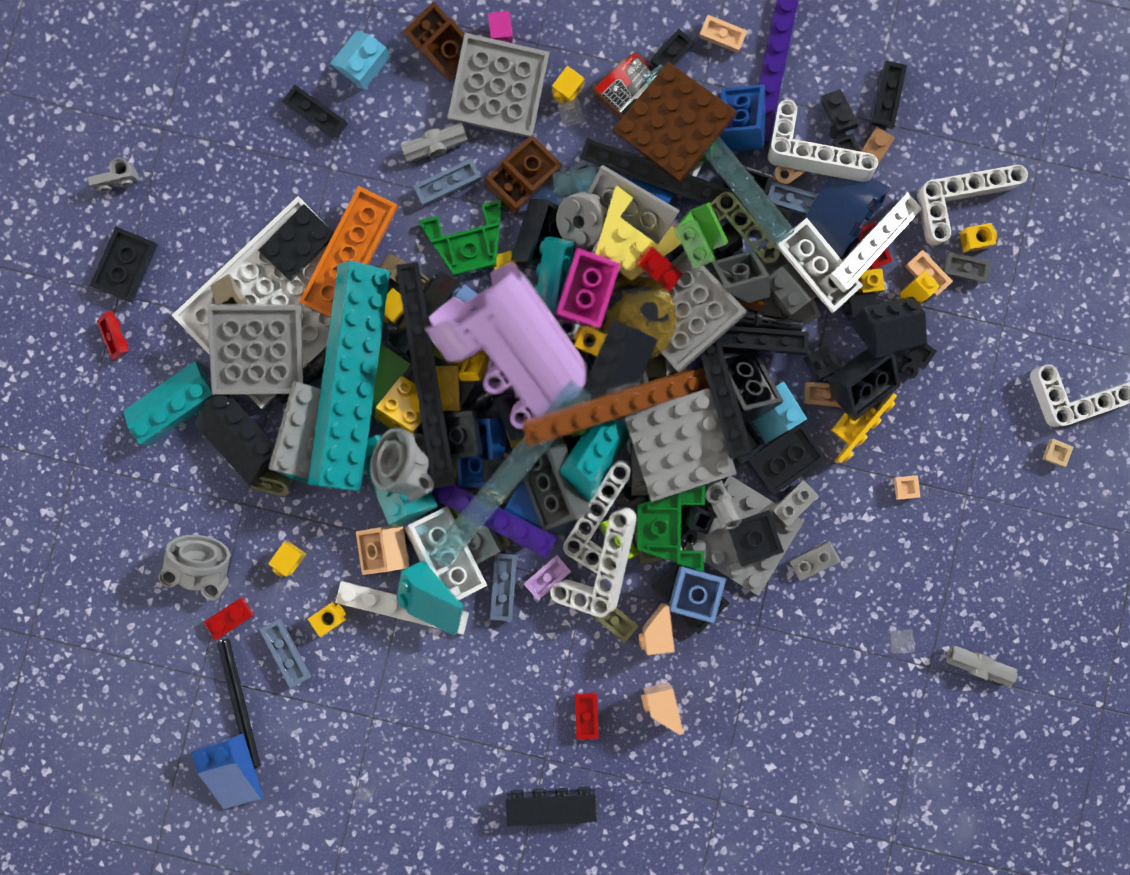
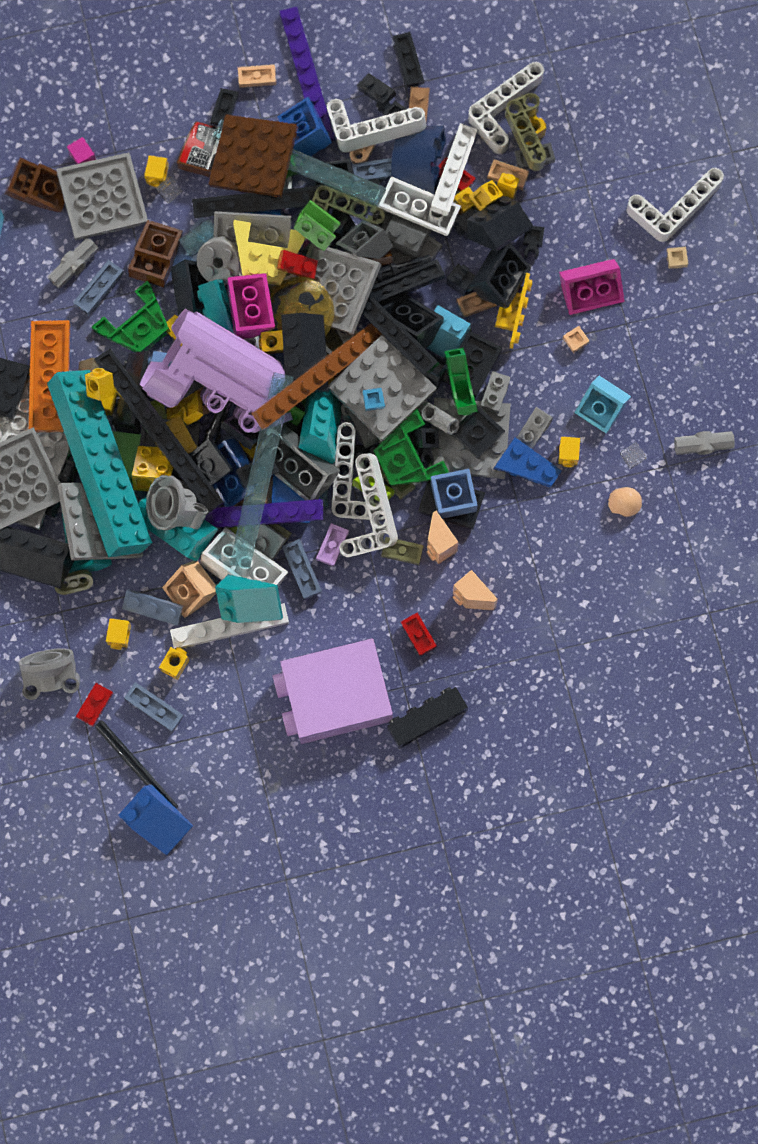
camera: 25 degrees left, 10 degrees down
(335, 549) = (152, 607): none -> sand blue plate
(387, 296) = (99, 384): none -> yellow brick
(469, 737) = (333, 692): none -> lavender brick
(664, 457) = (373, 399): none -> dark azure plate
(764, 478) = (460, 381): none -> green arch
(787, 593) = (526, 463): none -> blue wing
(837, 604) = (569, 451): none -> yellow brick
(867, 684) = (625, 501): none -> light nougat hair
(895, 288) = (485, 195): none -> yellow brick
(898, 571) = (602, 404): none -> medium azure slope
(953, 439) = (592, 286): none -> dark pink slope
(977, 243) = (527, 134): none -> olive beam

